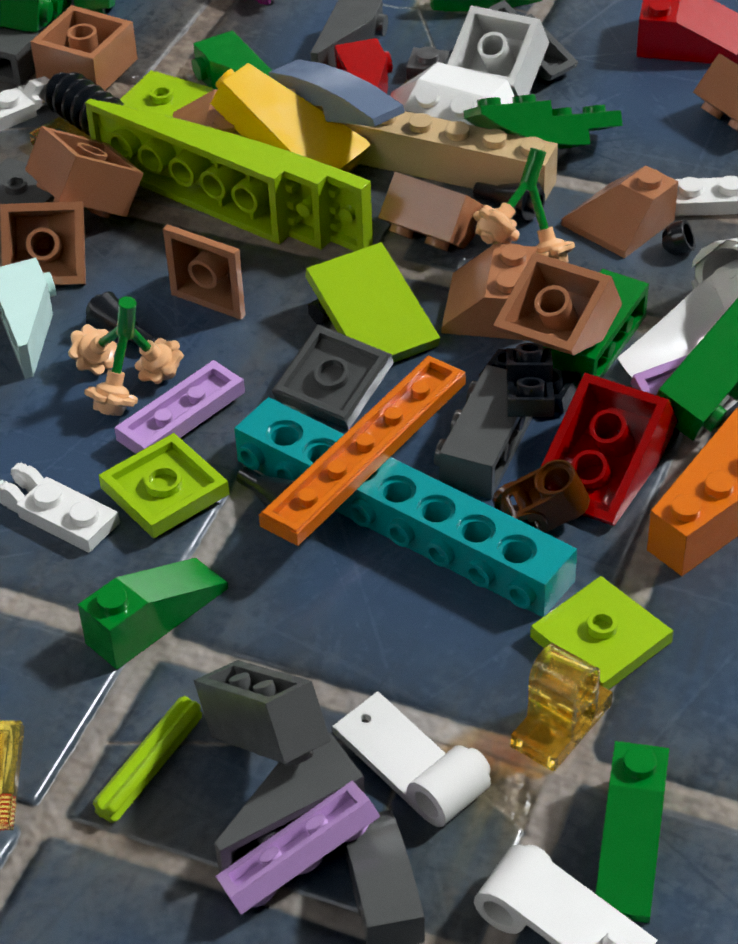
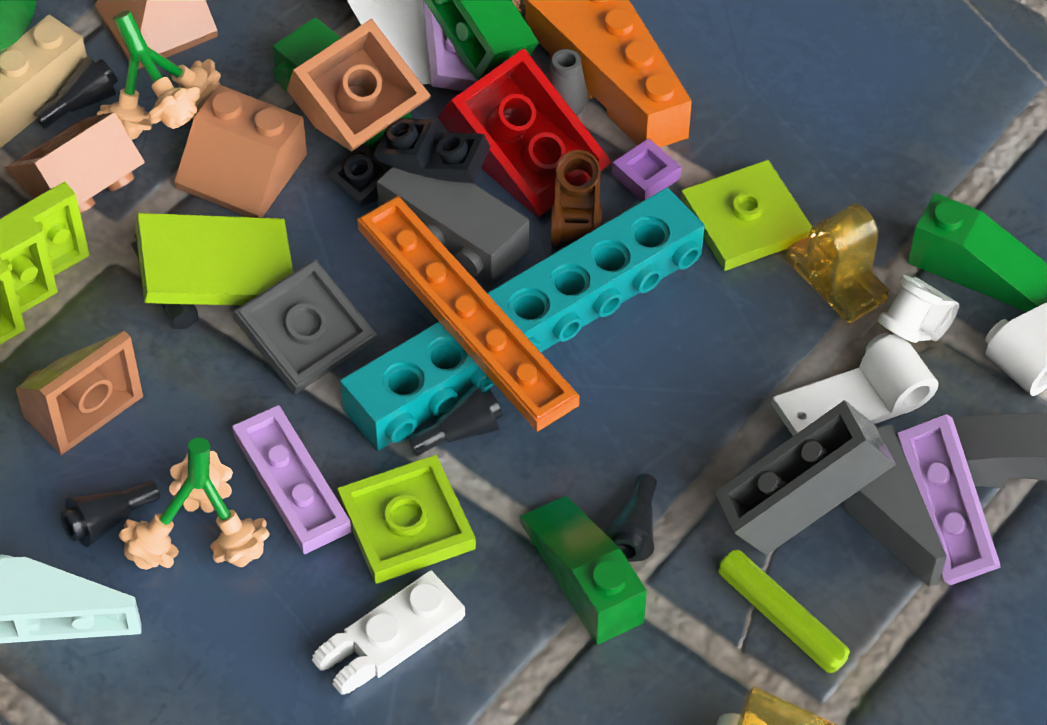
camera: 75 degrees left, 10 degrees up
(202, 628) = (634, 522): none -> black cone
(523, 776) = (919, 311): none -> white piece
(611, 545) = (646, 170): none -> medium lavender plate
(674, 456) = (568, 79): none -> dark grey cone

